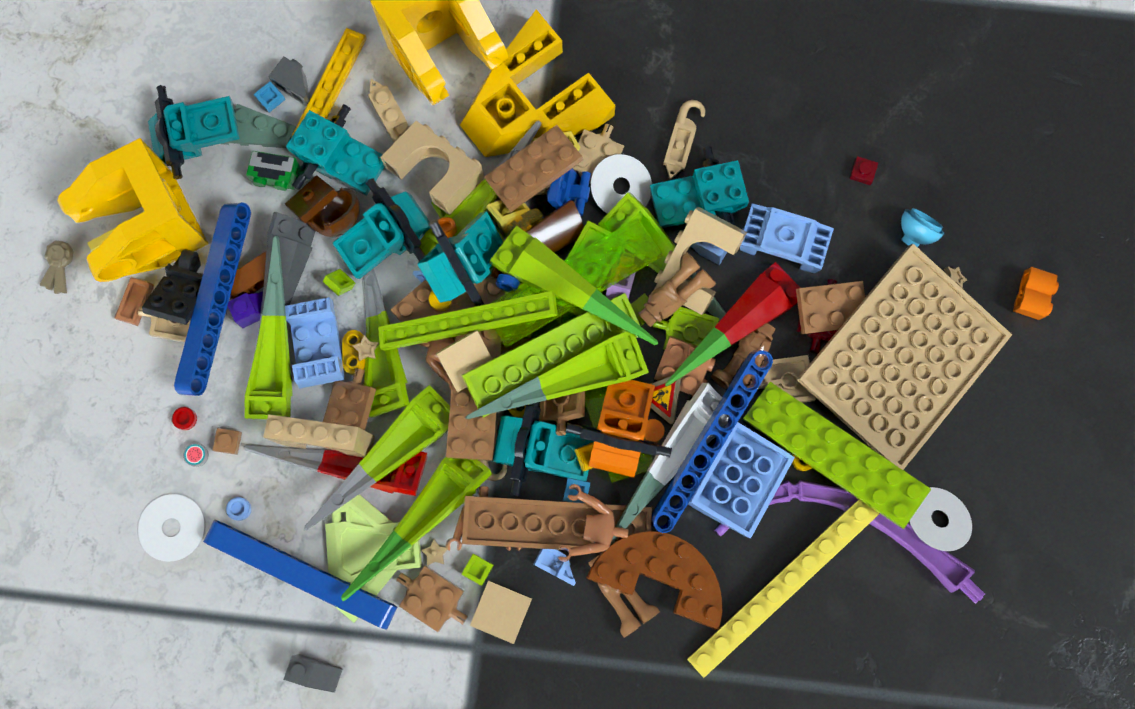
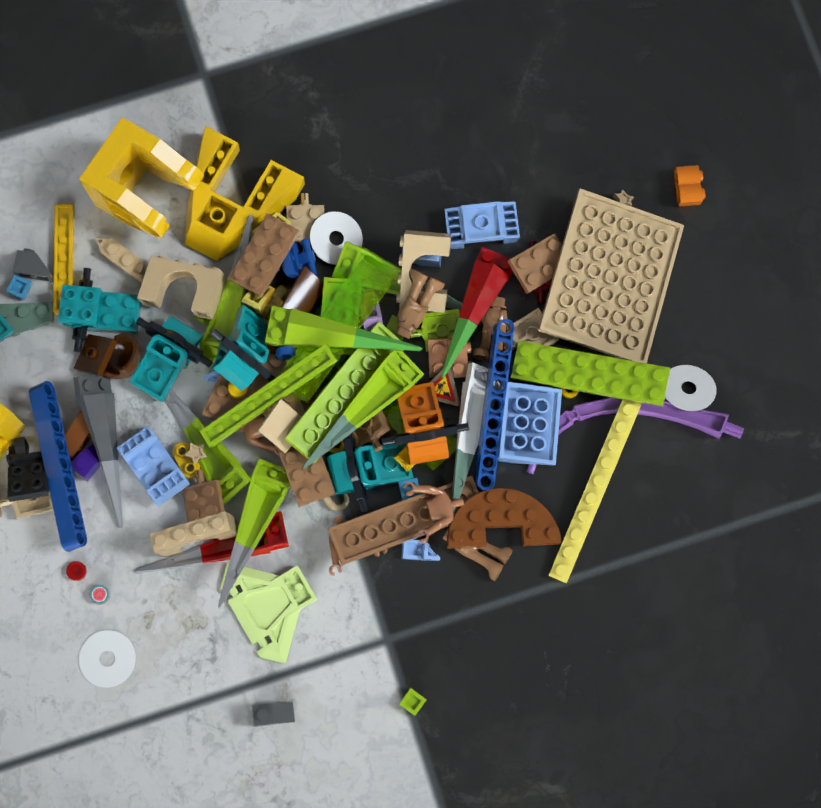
camera: 30 degrees left, 0 degrees up
(227, 441) = (119, 573): medium nougat plate -> none
(238, 508) = (154, 620): light blue tile -> none
(270, 376) = (131, 508): lime plate -> none
(272, 170) = (52, 346): brick -> none
(299, 574) = (227, 645): blue beam -> none
(339, 282) = (148, 410): lime plate -> none
(431, 598) = (336, 618): medium nougat plate -> none
(434, 553) = (322, 584): tan piece -> none
(437, 500) = (307, 541): lime plate -> none
(448, 226) = (218, 326): orange tile -> none
(477, 569) = (361, 581): lime plate -> none
(500, 612) = (394, 604): tan piece -> none
(654, 430) = (448, 416): orange tile -> none
(681, 139) = (366, 180): tan plate -> none
(713, 188) = (409, 210): teal piece -> none
(863, 170) = (519, 145): dark red plate -> none
(920, 228) = (580, 172): medium azure piece -> none

